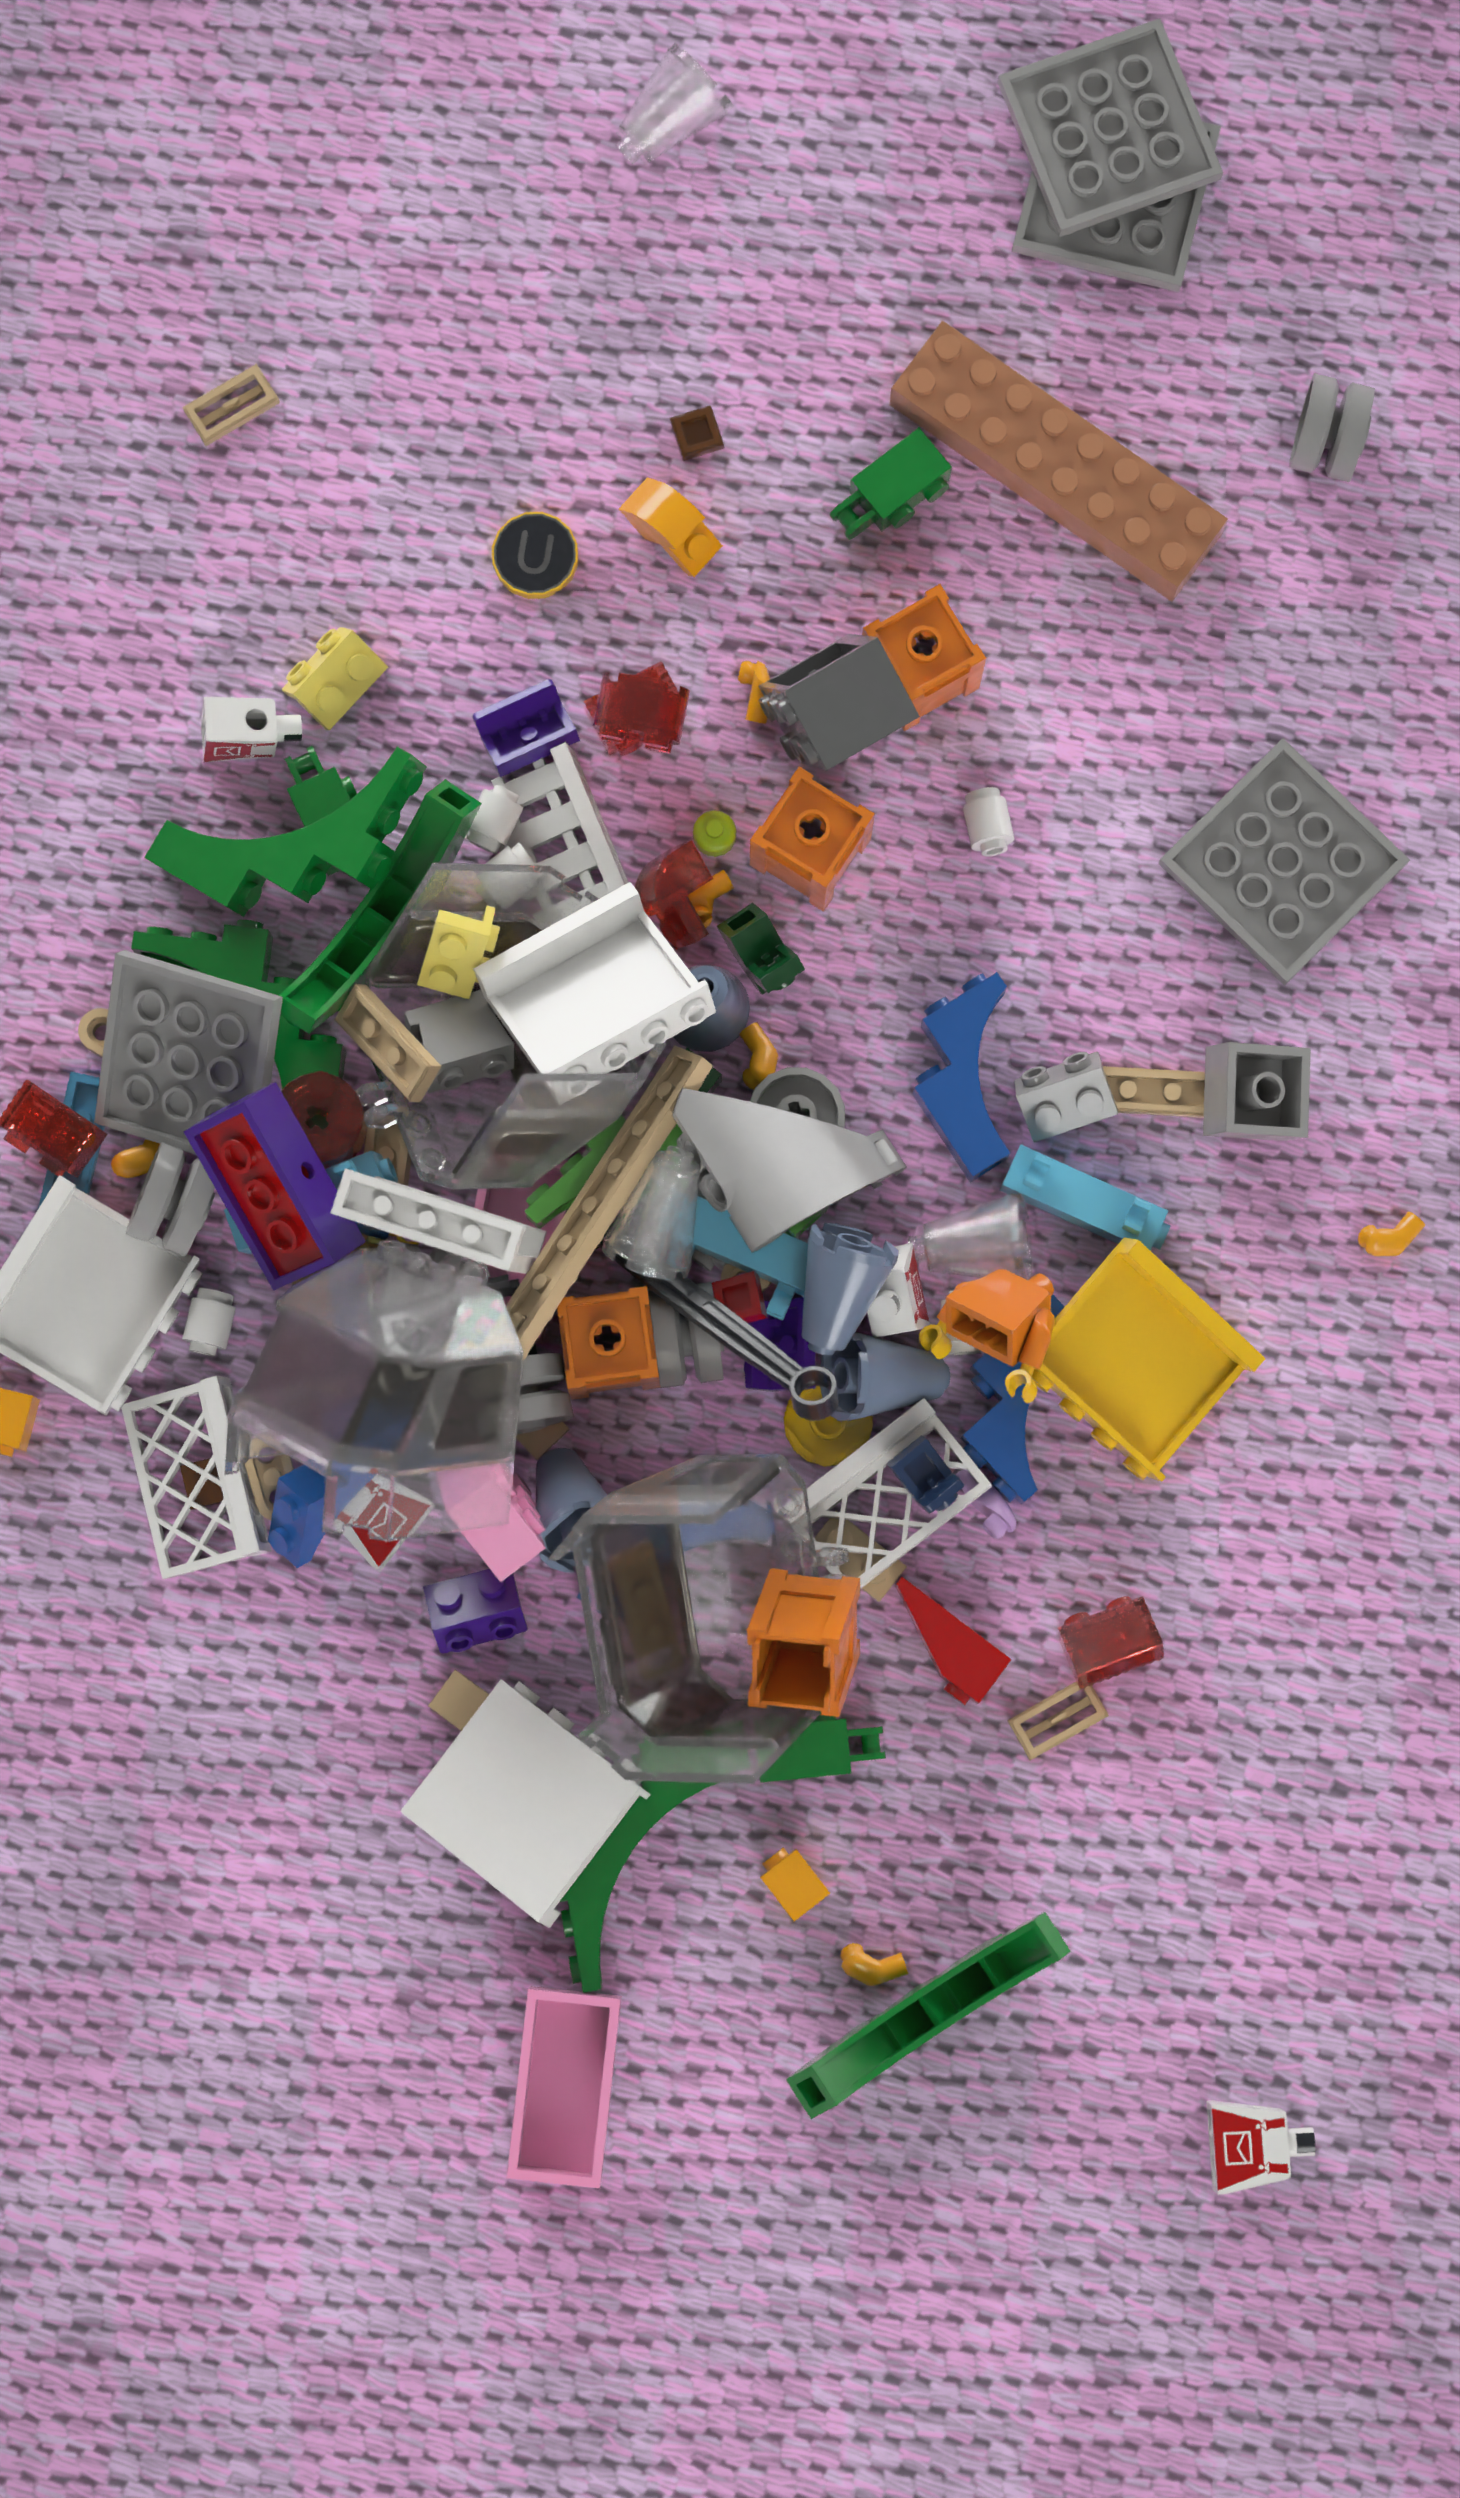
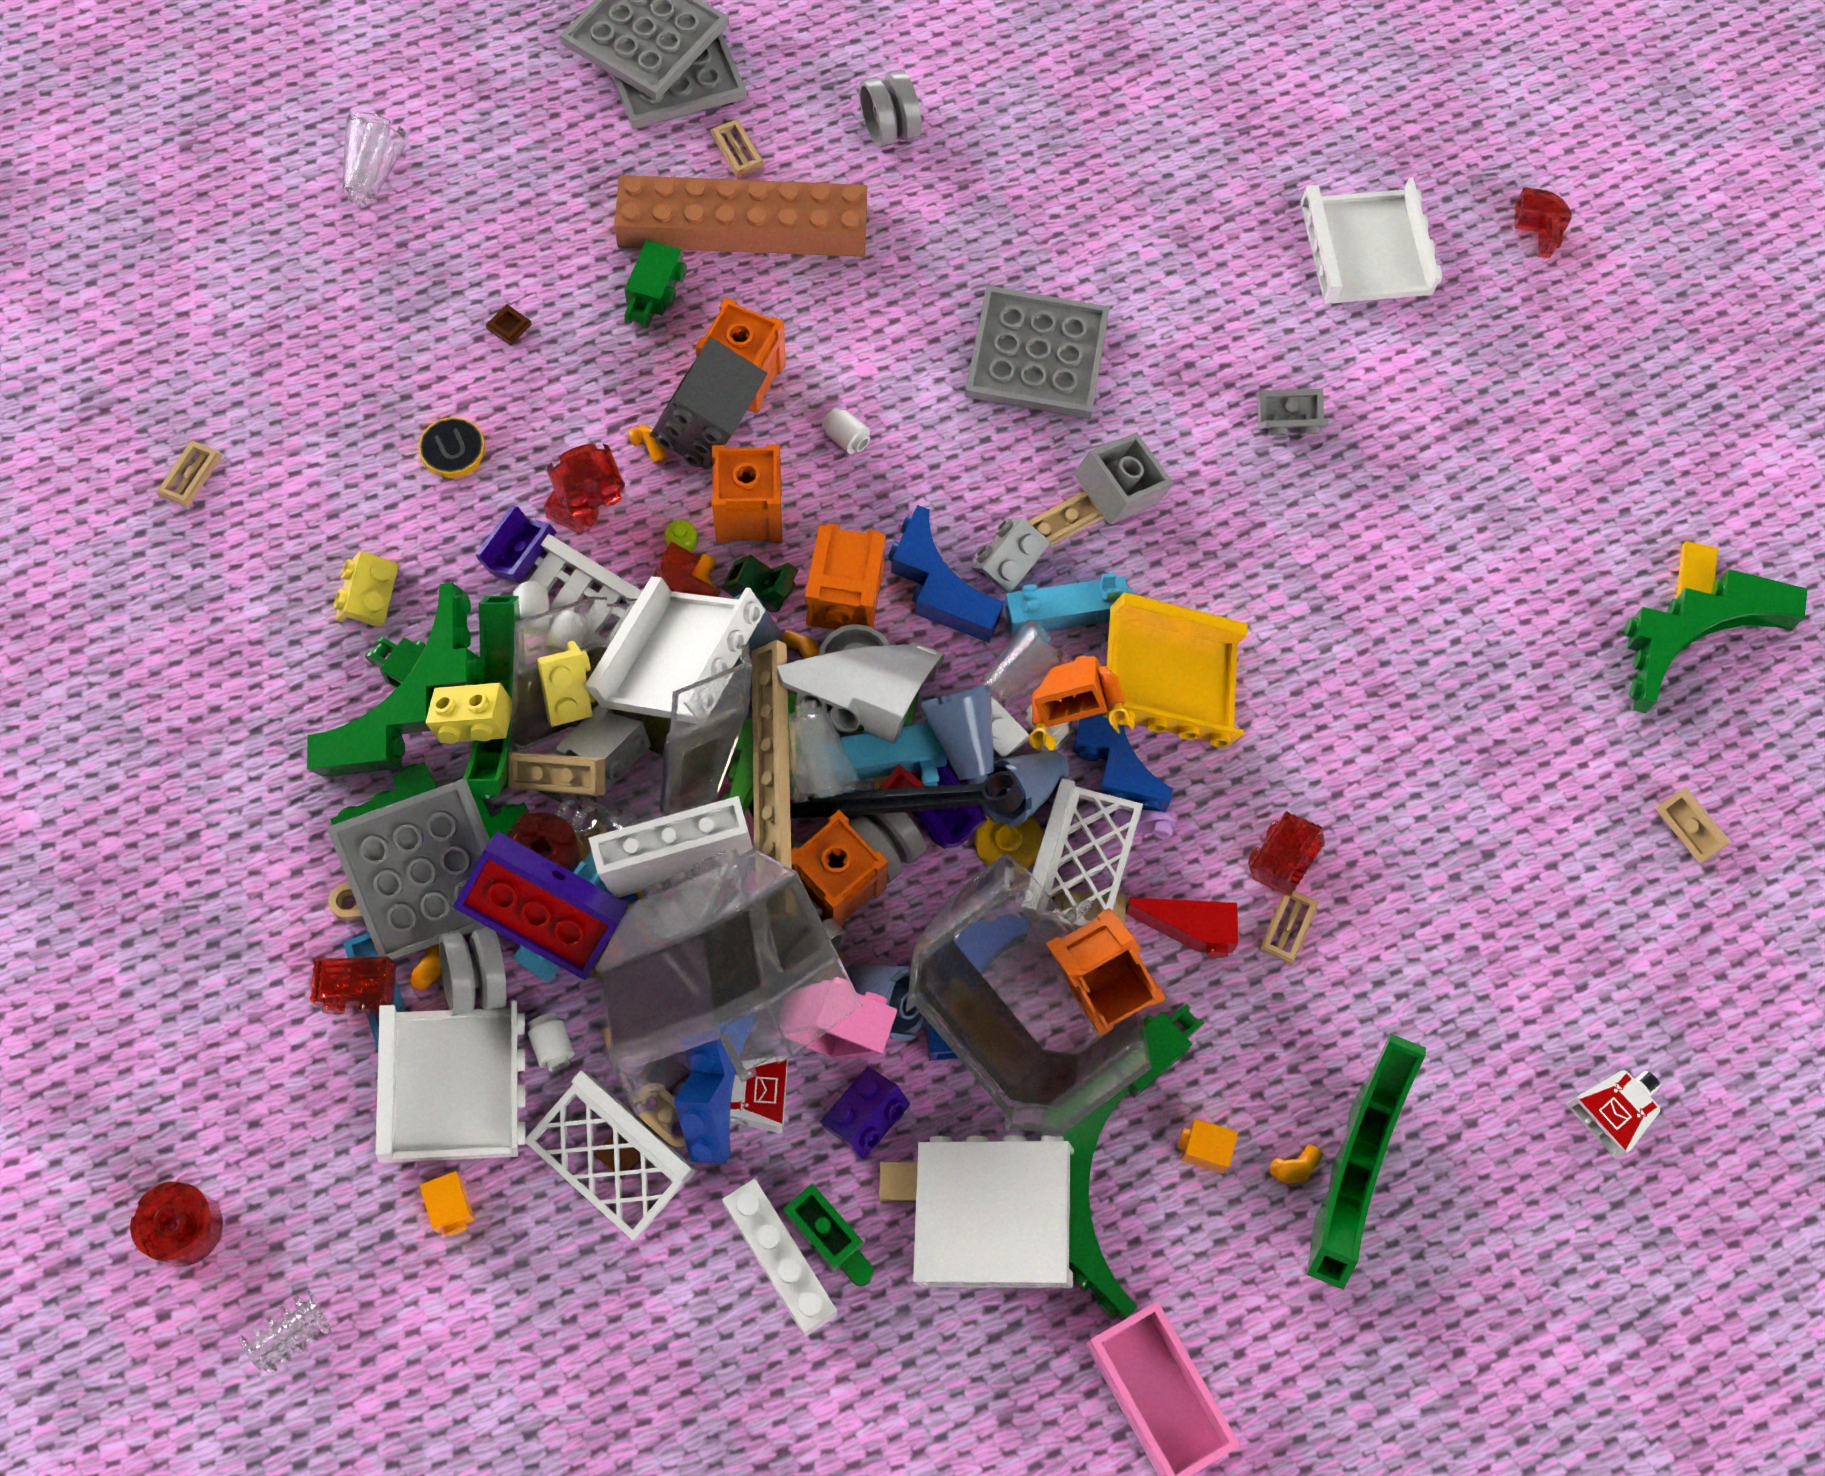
camera: 40 degrees left, 15 degrees down
(228, 730) = (323, 652): white torso -> none
(289, 1696) = (779, 1257): none -> white brick
(339, 915) = (469, 713): none -> light yellow brick
(350, 1709) = (829, 1235): none -> green brick
(673, 522) = (528, 373): light orange brick -> none
(853, 1010) = (844, 577): none -> orange container
(926, 1476) = (1100, 821): dark blue bracket -> none
(1115, 392) = (746, 167): none -> tan tile
(1390, 1241) = (1261, 519): light orange arm -> none

